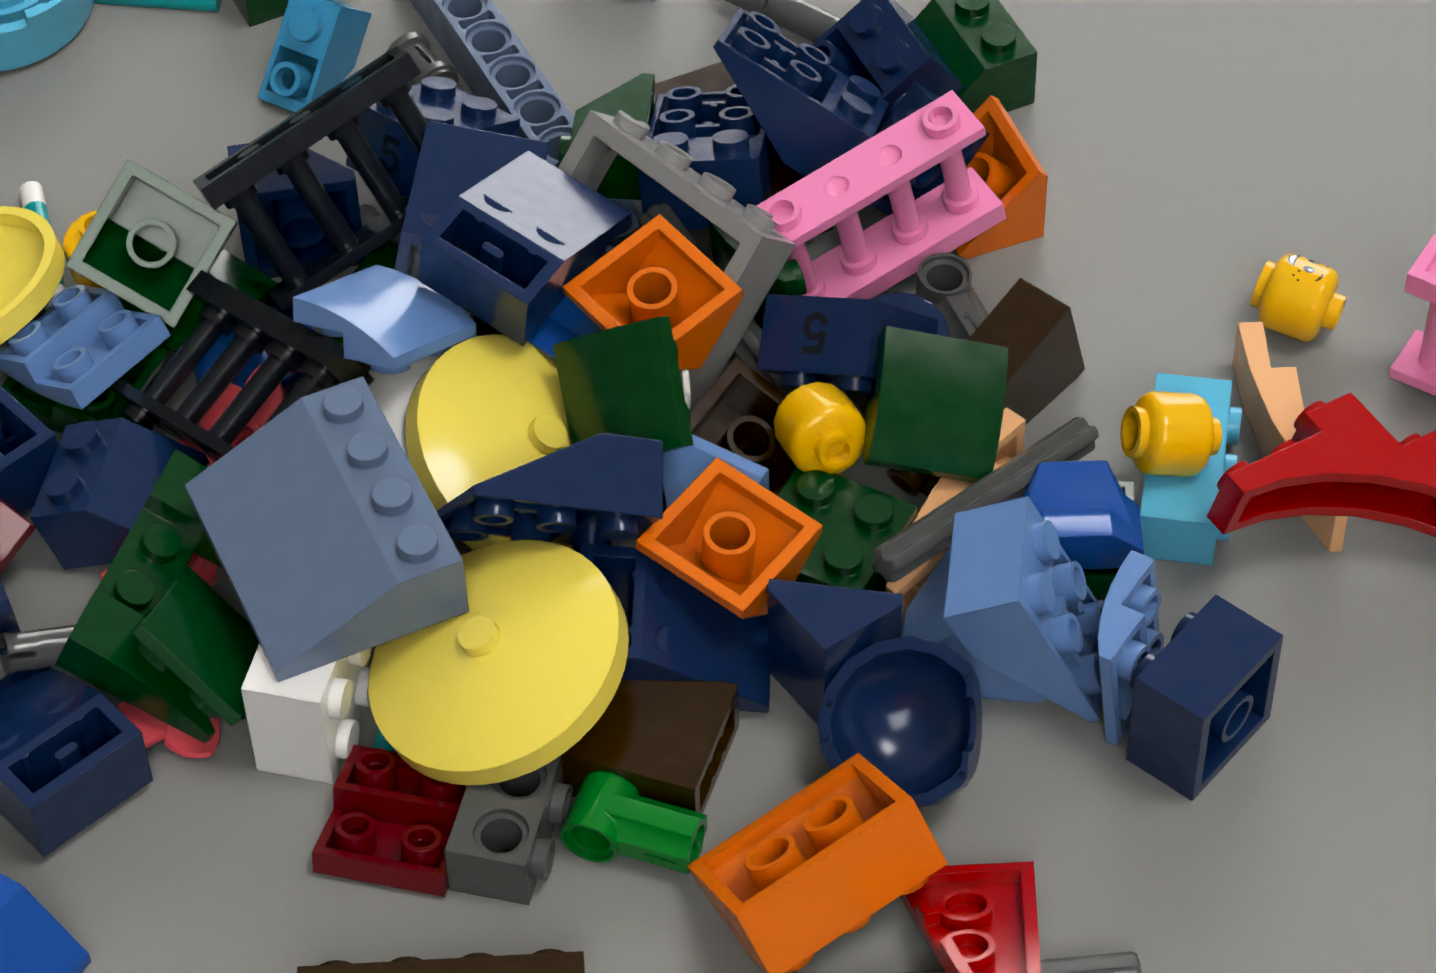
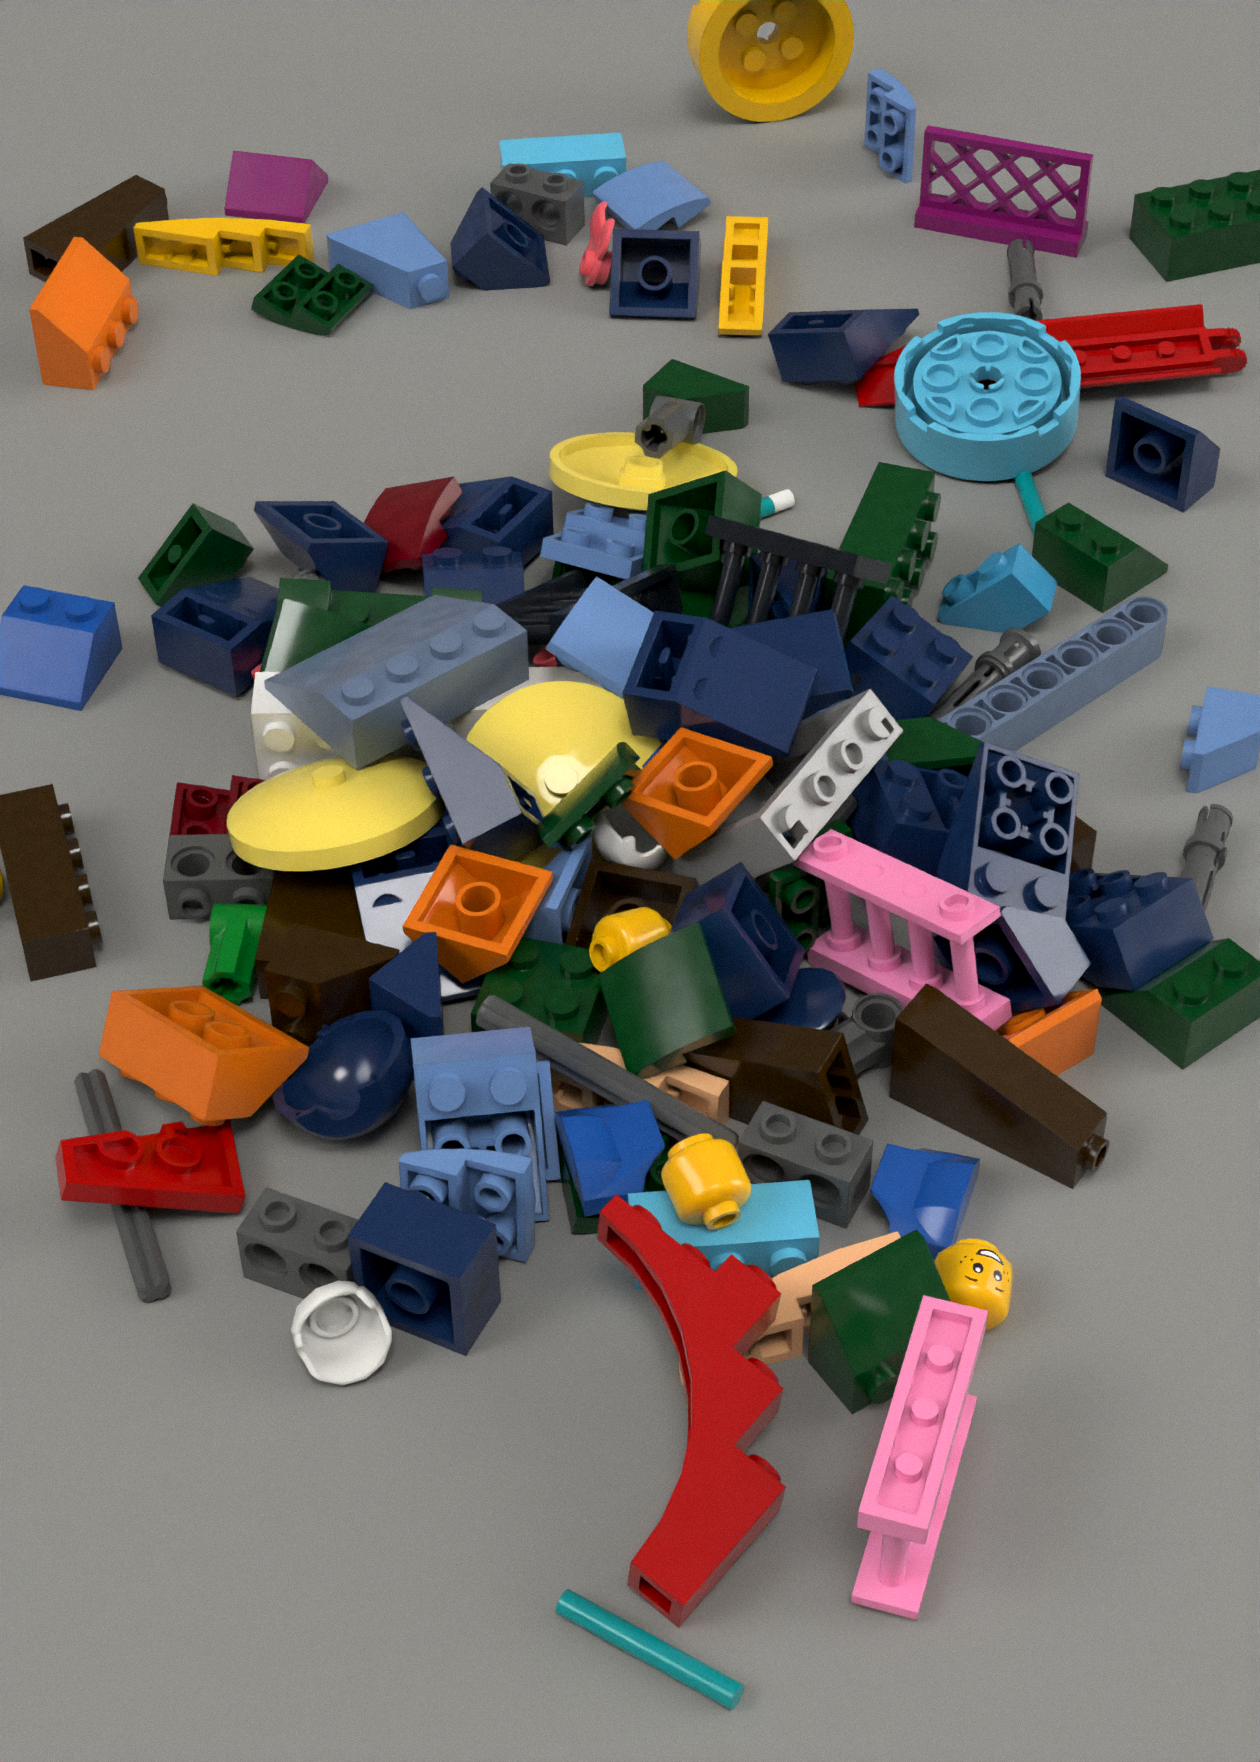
camera: 75 degrees right, 5 degrees down
(201, 95) = (895, 529): none -> dark green piece
(768, 725) = (320, 979): none -> dark brown slope
(1062, 220) = (992, 1090): none -> dark brown slope
(1112, 377) = (797, 1148): none -> dark grey brick
(1132, 810) = (294, 1244): none -> dark grey brick
(1169, 305) = (925, 1192): none -> blue slope
(1250, 795) = (341, 1333): none -> white hair
(1341, 354) = (867, 1319): none -> dark green slope

